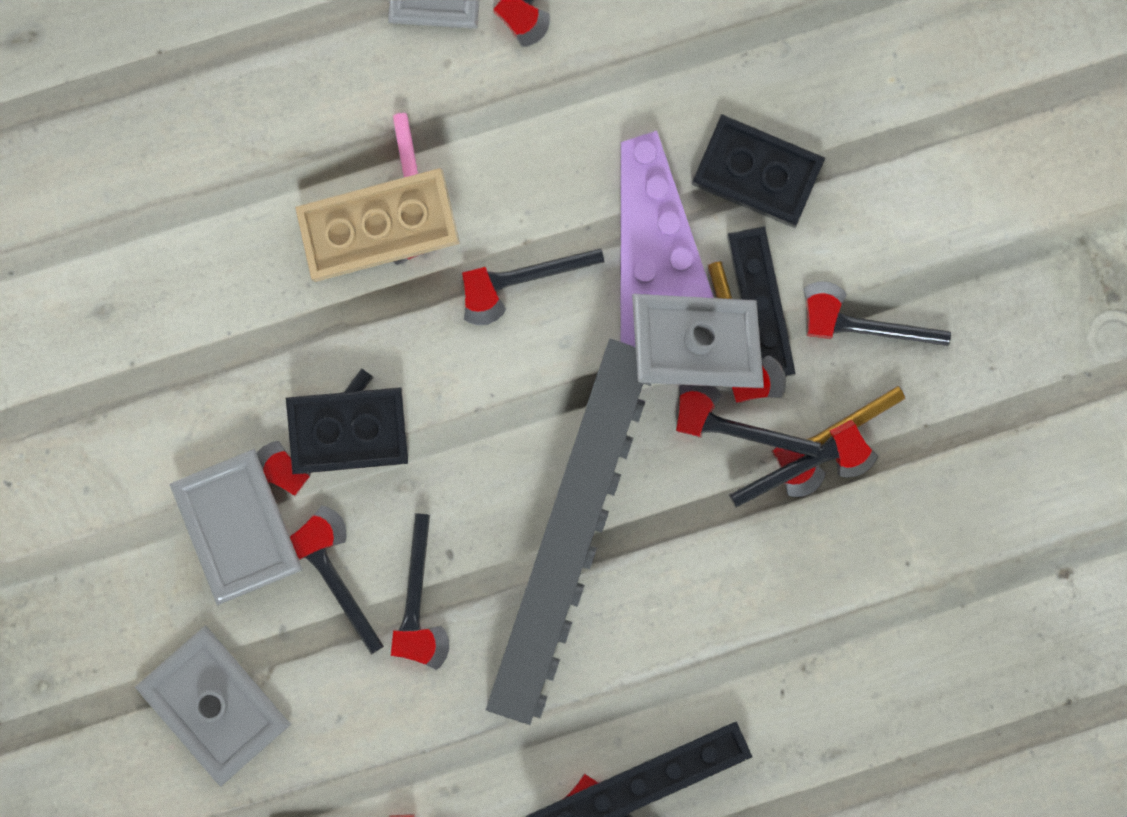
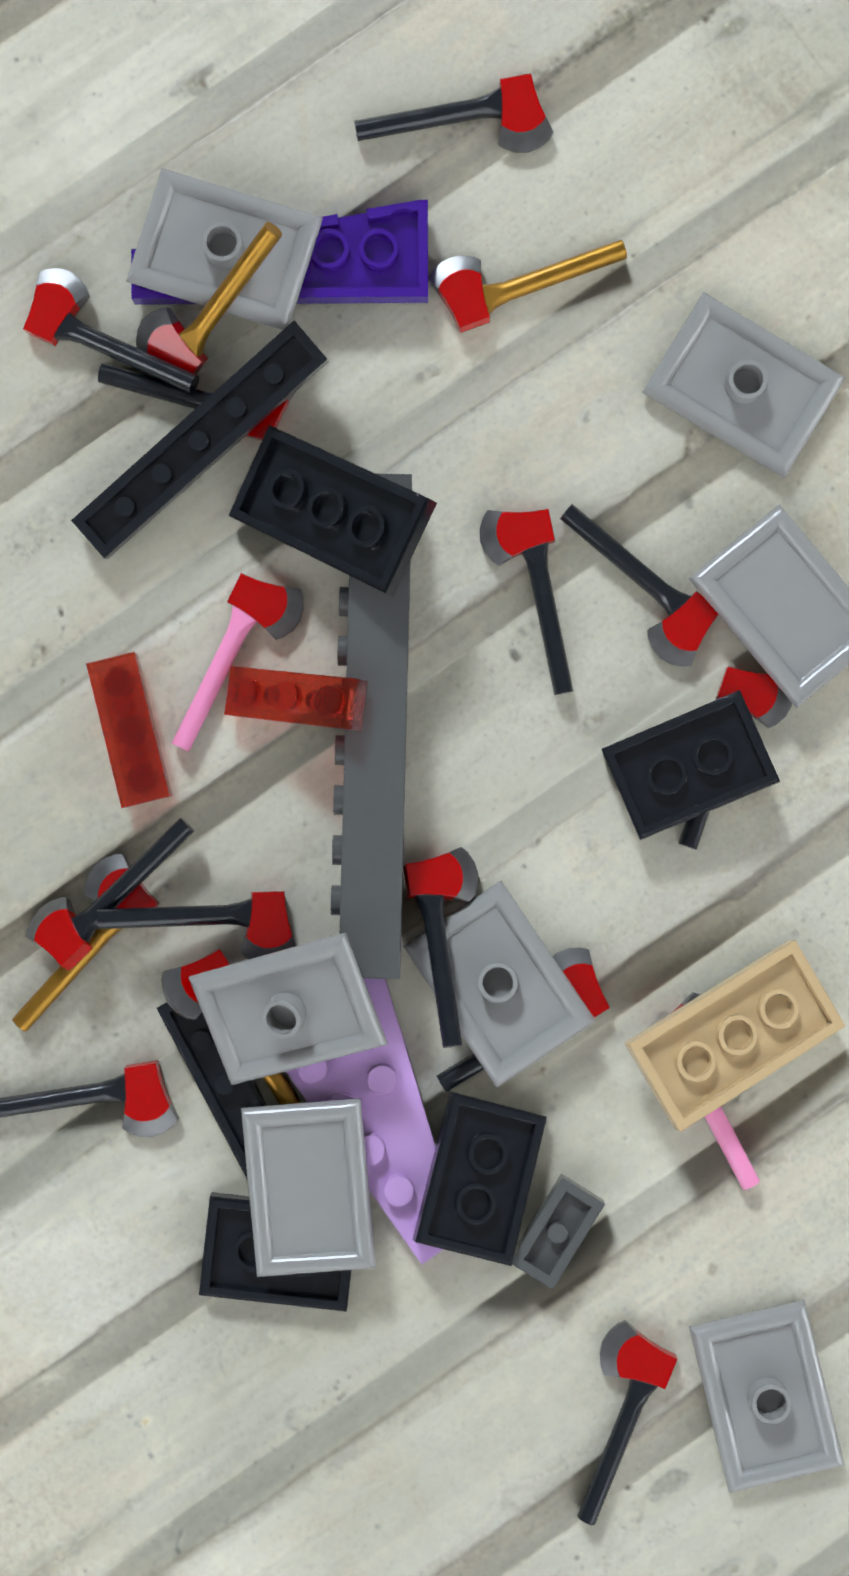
camera: 170 degrees right, 5 degrees up
(537, 314) = (506, 985): none -> light grey piece
(551, 124) = (557, 1231): none -> dark grey plate
(553, 701) = (332, 510): none -> black tile
(566, 403) = (430, 882): none -> piece
(595, 179) = (479, 1179): none -> black tile
(623, 568) = (296, 698): none -> clear red plate
(634, 654) = (252, 602): none -> piece
(721, 210) = (308, 1187): none -> light grey piece
(755, 585) = (129, 730): none -> clear red plate

